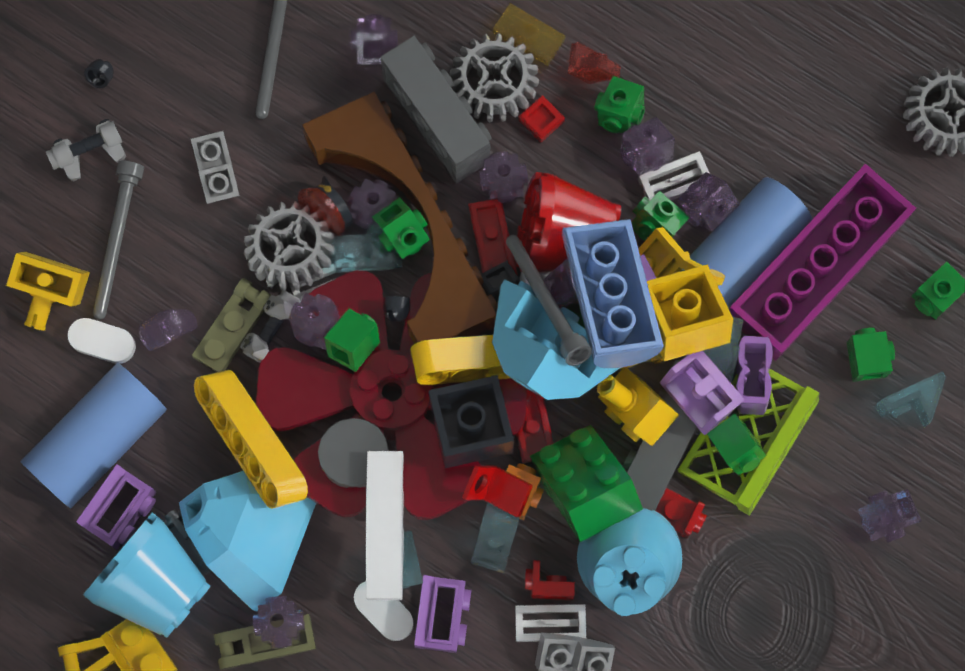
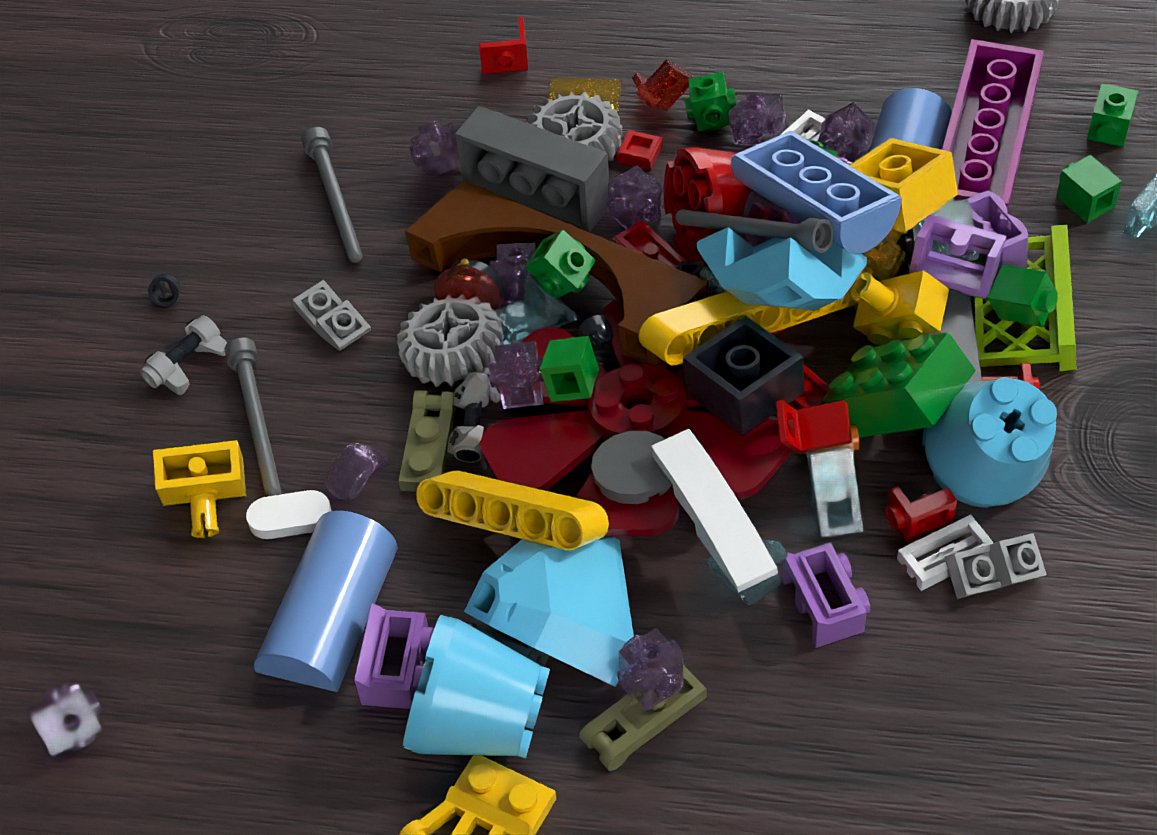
camera: 20 degrees left, 25 degrees down
(386, 616) = (757, 624): white tile -> none

